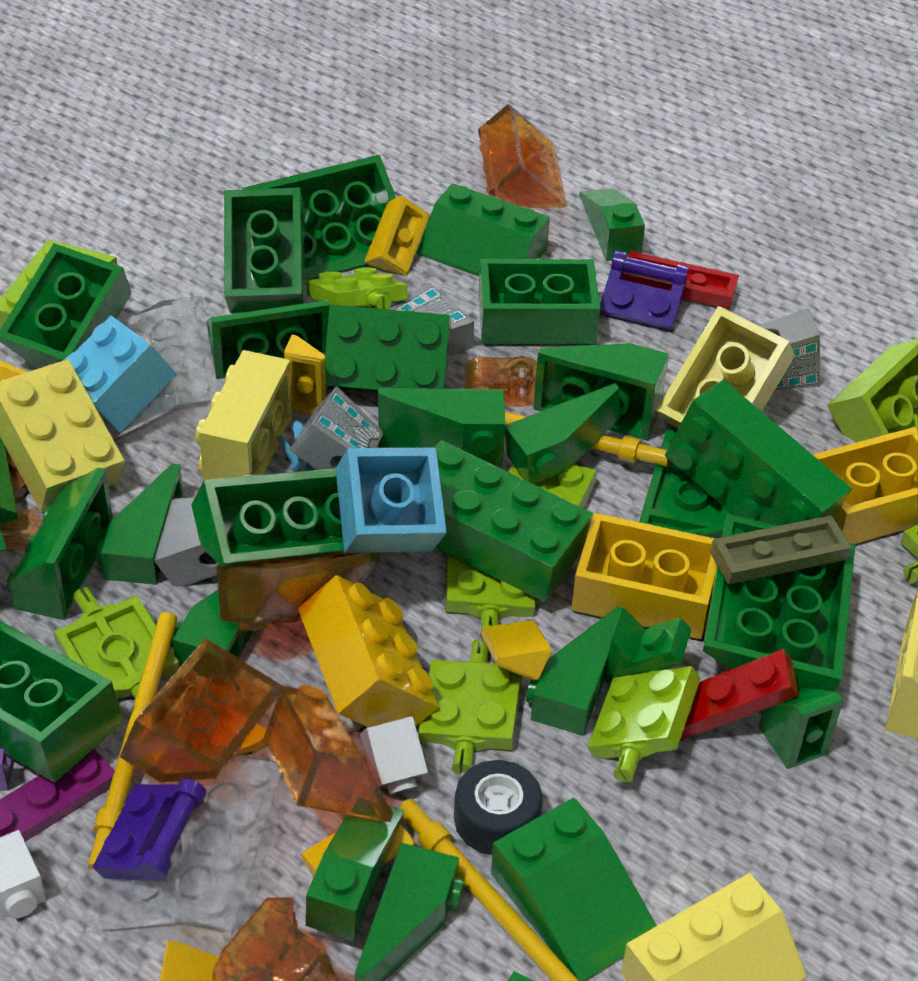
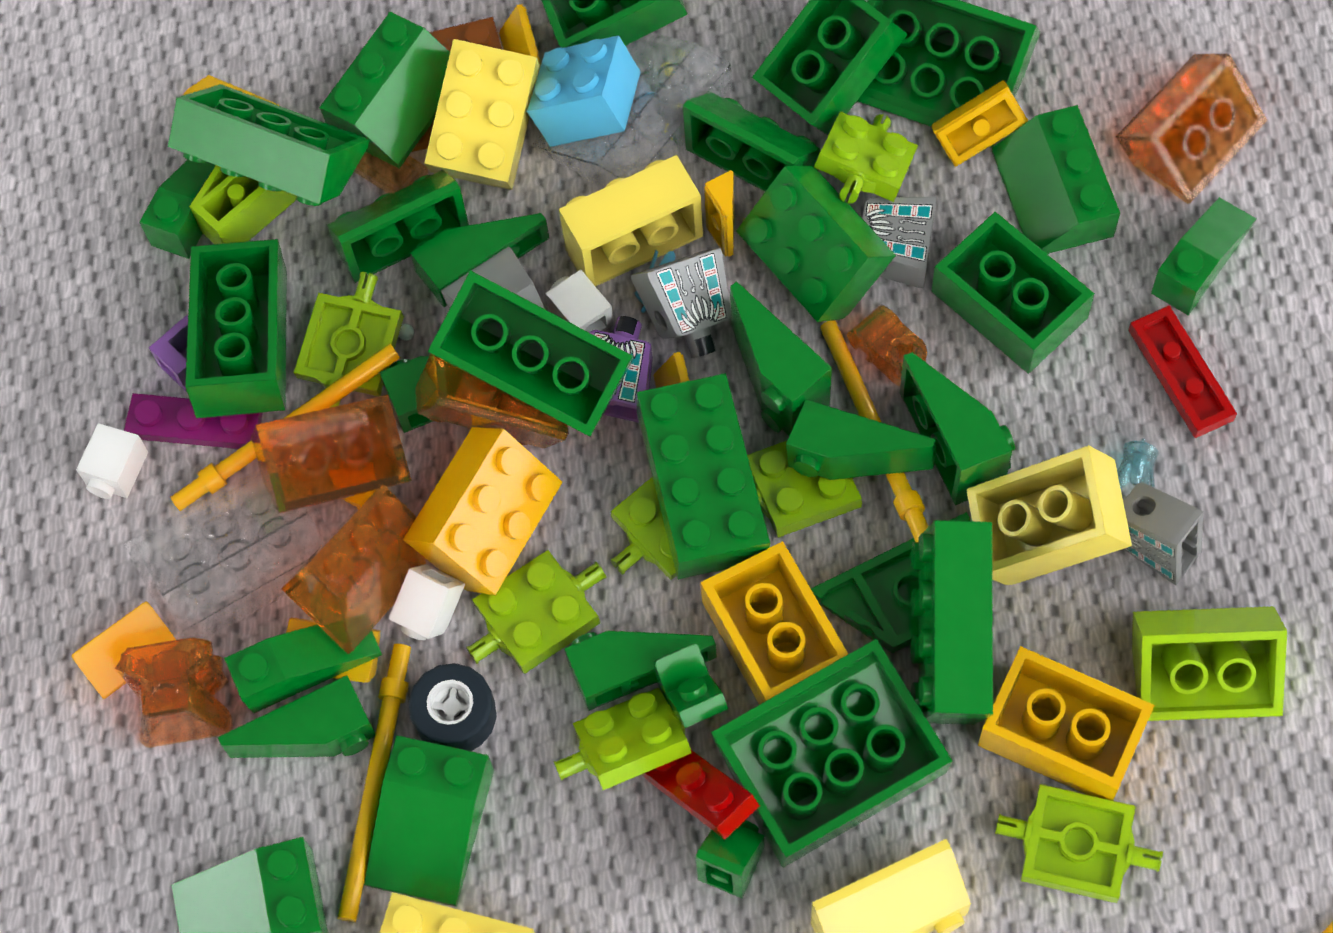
camera: 55 degrees right, 20 degrees up
(148, 830) = (213, 509): dark purple plate -> none
(390, 500) = (594, 402): medium azure brick -> none
(518, 647) = (600, 597): yellow slope -> none
(641, 302) = (1113, 366): dark purple plate -> none
(780, 549) = (865, 711): olive plate -> none

